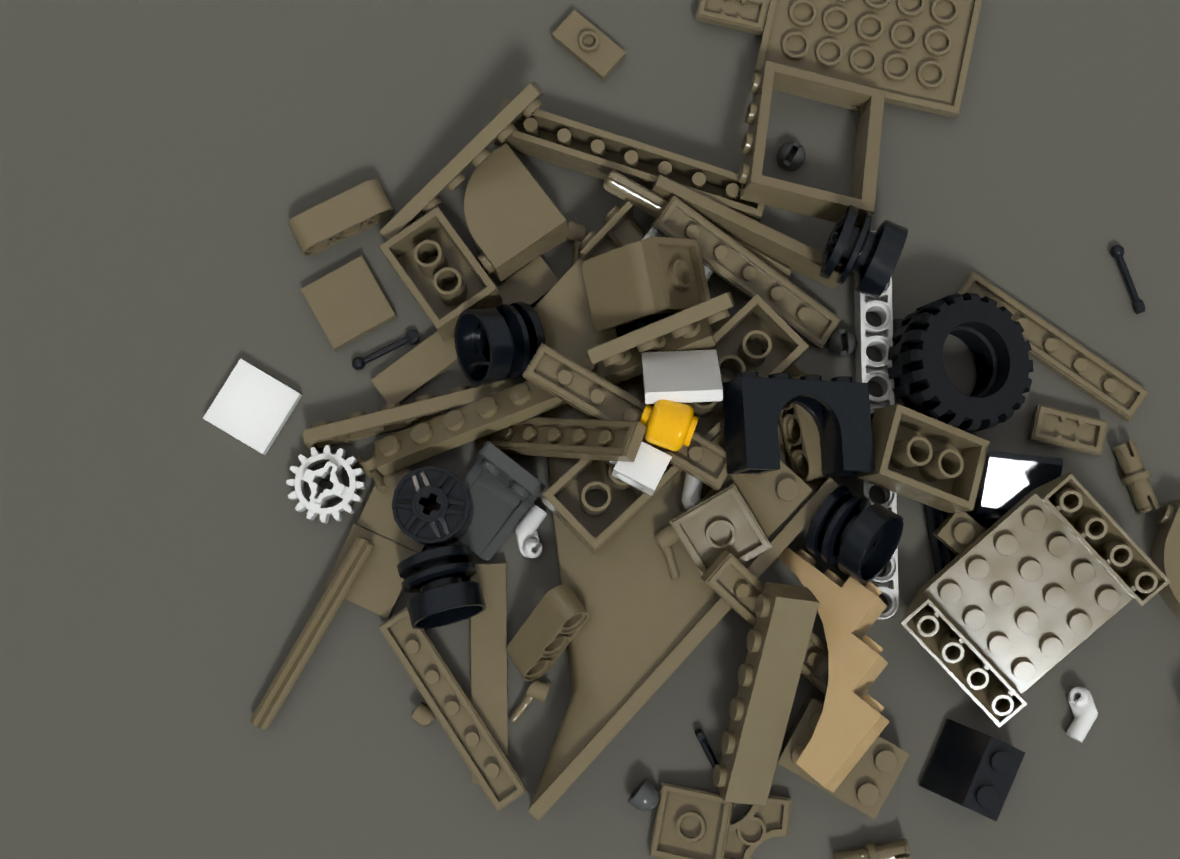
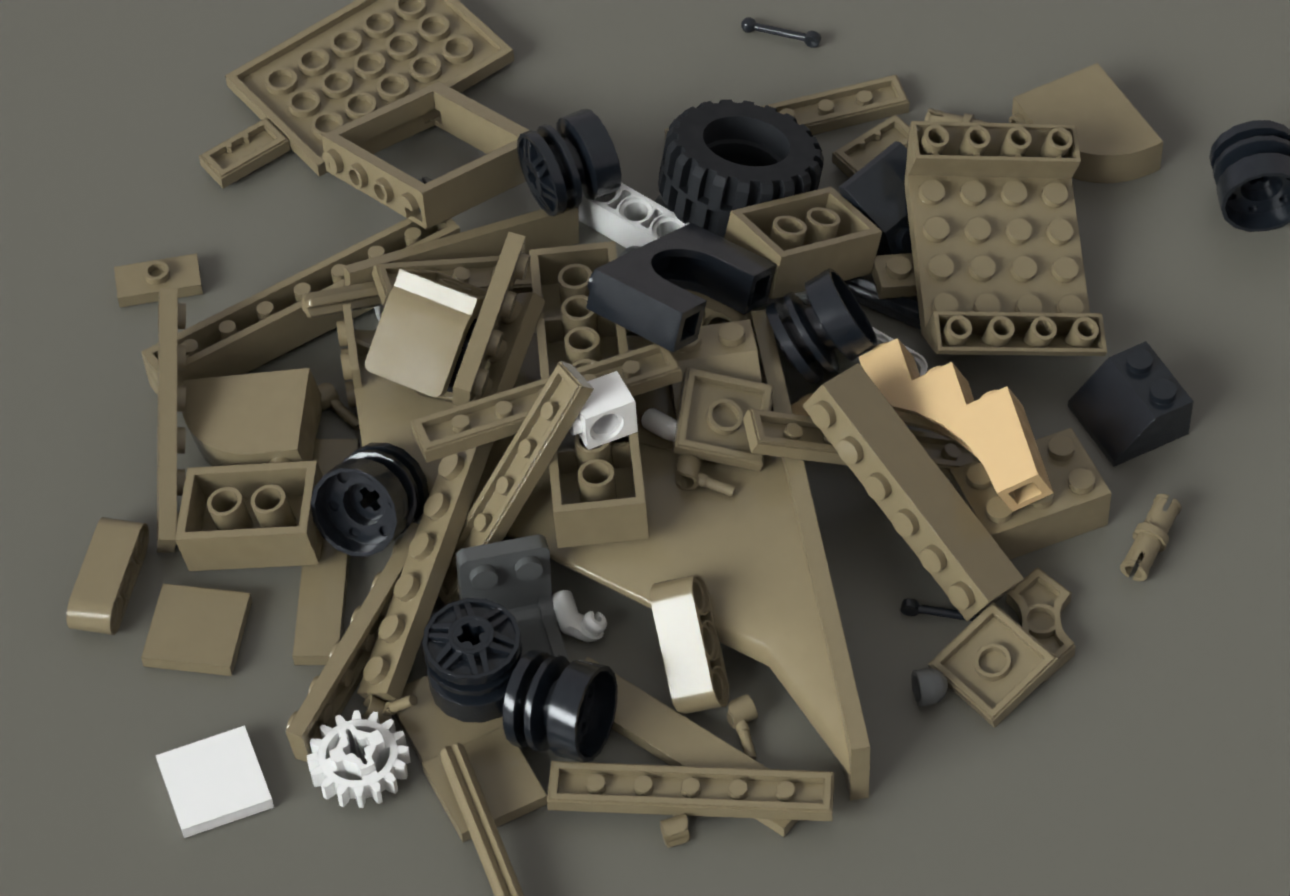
camera: 50 degrees left, 30 degrees down
(411, 337) = (285, 601): black hinge -> none
(669, 424) = (587, 348): yellow head -> none
(682, 376) = (550, 326): white tile -> none
(1084, 713) = (1150, 295): white arm -> none

